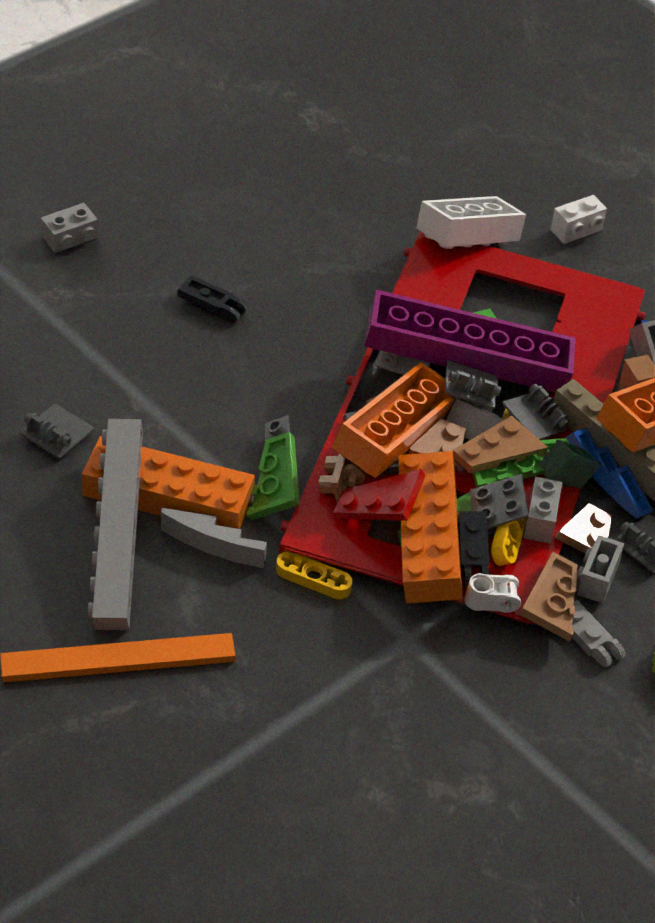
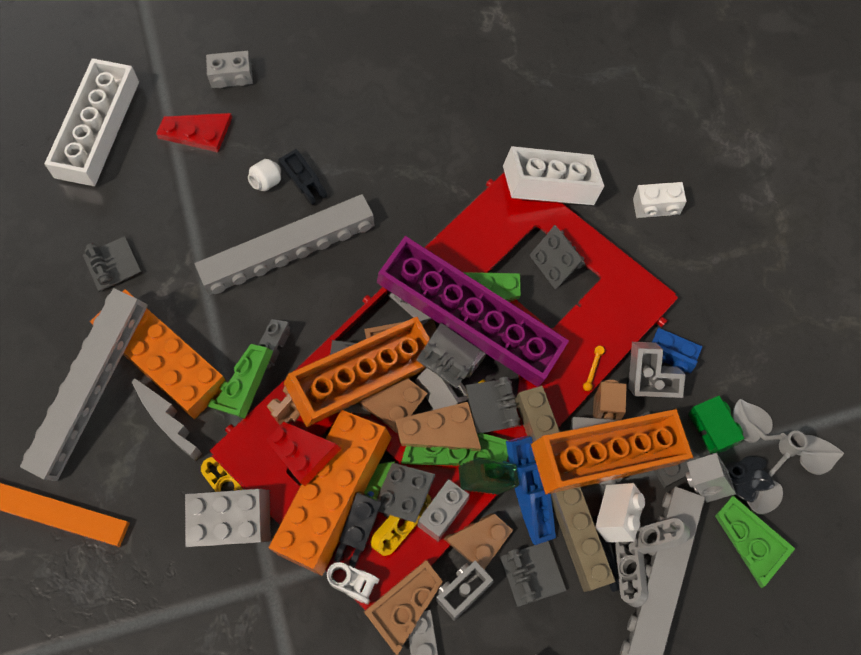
camera: 30 degrees right, 20 degrees up
(66, 292) = (198, 131): none -> red wing
(172, 307) = (264, 175): none -> white head
(234, 360) = (285, 245): none -> light grey brick
(339, 586) = (227, 518): none -> light grey brick
(513, 289) = (556, 257): none -> dark grey hinge
(601, 351) = (599, 350): none -> light orange hinge

